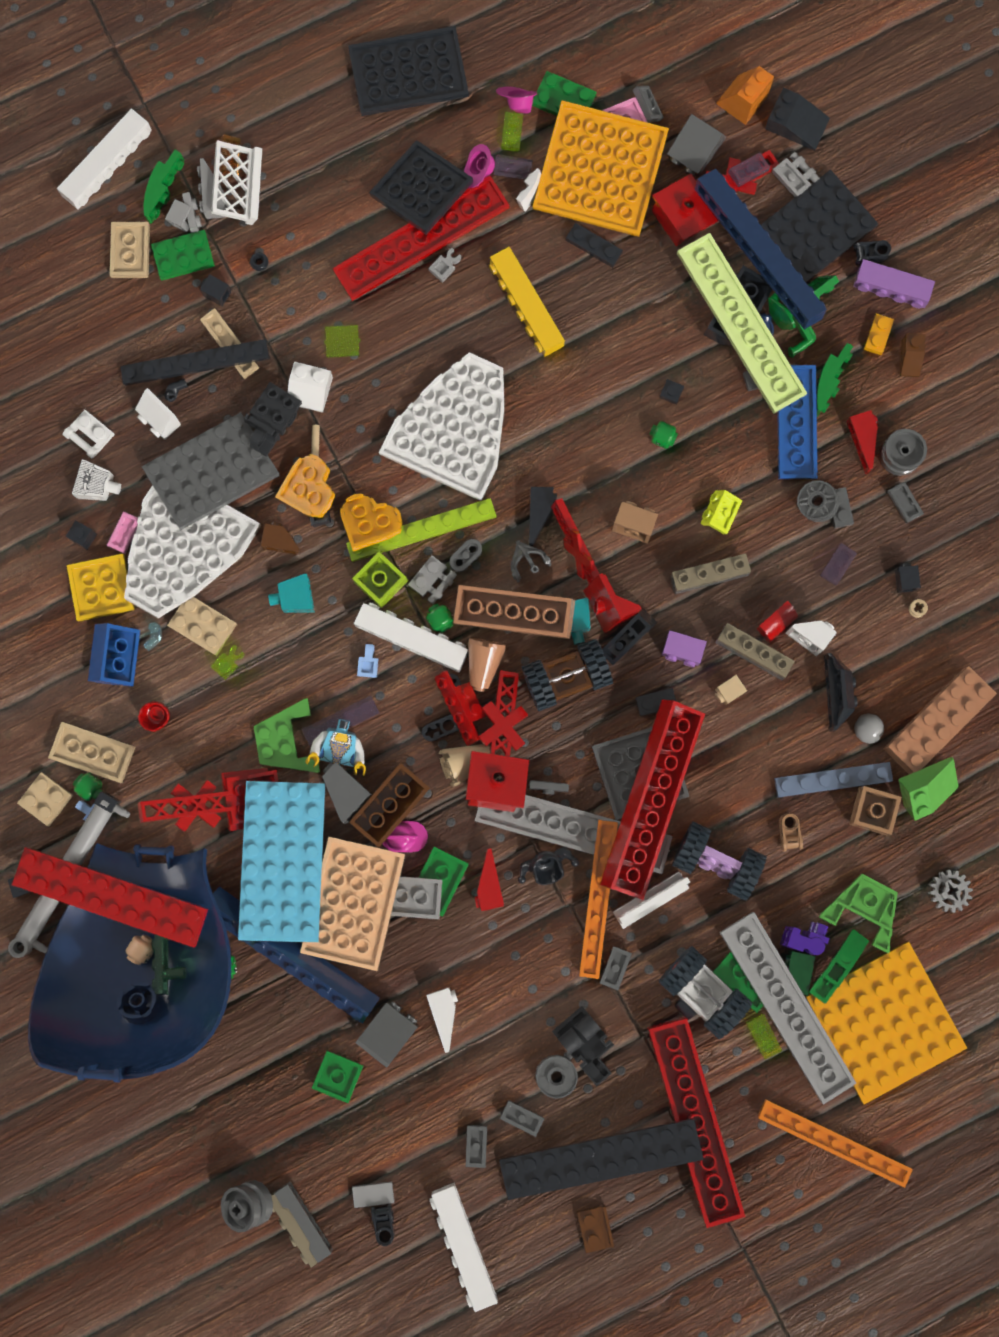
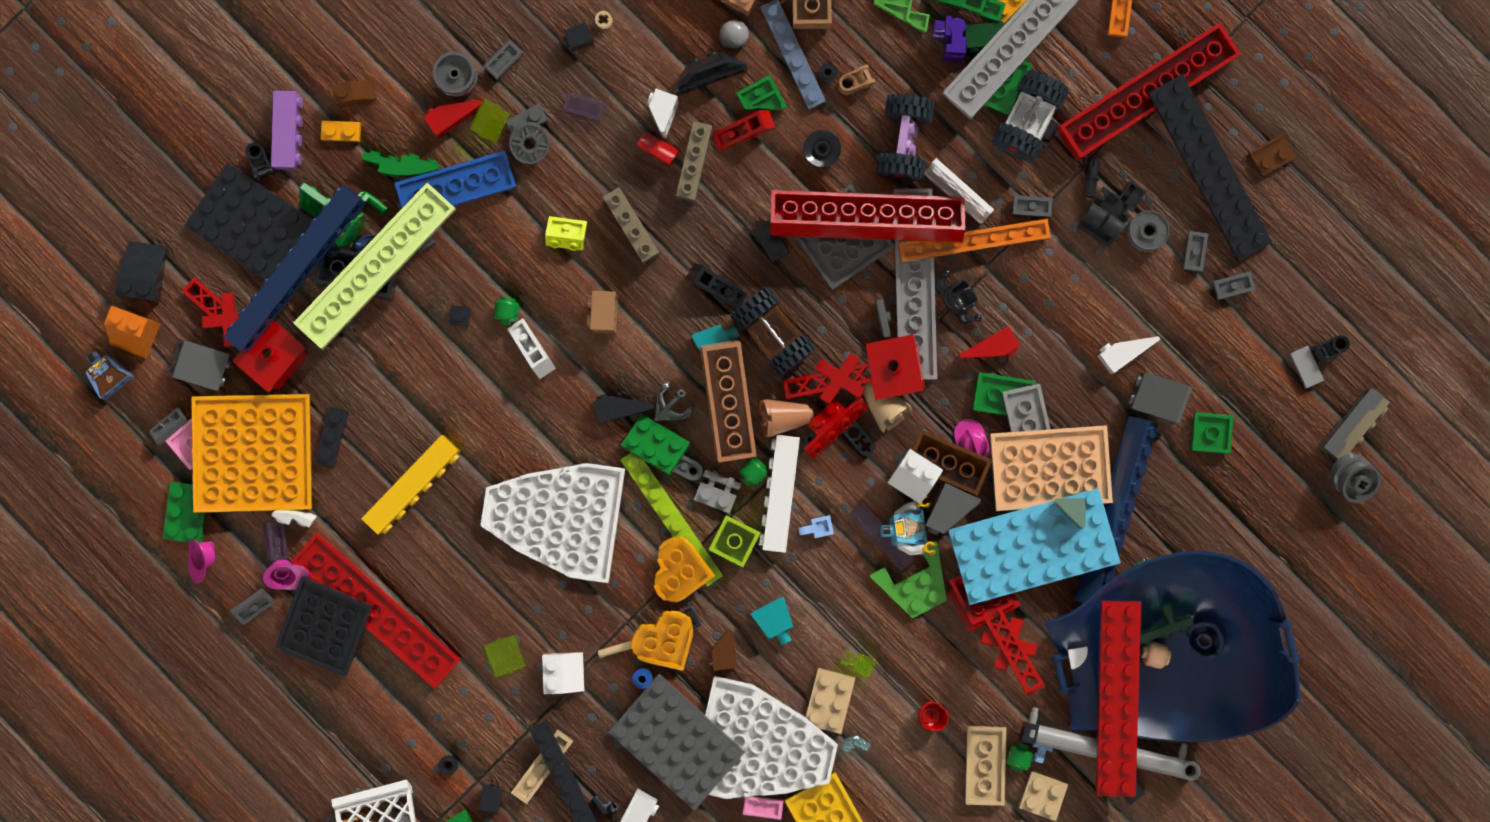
camera: 105 degrees left, 5 degrees up
(114, 655) = (886, 776): blue slope -> none
(164, 871) = (1077, 656): none -> white tile
(270, 417) = (603, 699): black plate -> none
(279, 462) = (642, 672): none -> blue brick
(304, 909) = (1074, 509): none -> sand green slope
(386, 766) = (915, 476): none -> white slope
(408, 71) = (203, 678): black plate -> none
(443, 267) = (400, 578): light grey plate -> none
(459, 131) = (252, 606): none -> dark grey plate
(464, 1247) = (1325, 269): white brick -> none
(494, 534) = (655, 444): none -> green plate
(512, 131) = (236, 554): clear neon green plate -> none
(607, 606) = (695, 315): red piece -> none
(619, 447) = (531, 348): none -> white slope
(625, 1036) = (1091, 179): none -> black axle
(683, 648) = (712, 230): medium lavender brick -> none
(711, 63) = (107, 375): none -> torso
(730, 690) = (738, 174): tan brick -> none
(742, 778) = (824, 139): none -> black dish
(749, 169) = (211, 304): plate -> none
(764, 1036) = (1051, 51): clear neon green plate -> none
(772, 709) = (744, 129): none -> red slope
(790, 176) = (204, 260): light grey plate -> none
(799, 807) = (827, 79): none -> black plate
(800, 736) = (761, 96): none -> green wing
(849, 471) = (489, 121): none -> clear neon green piece

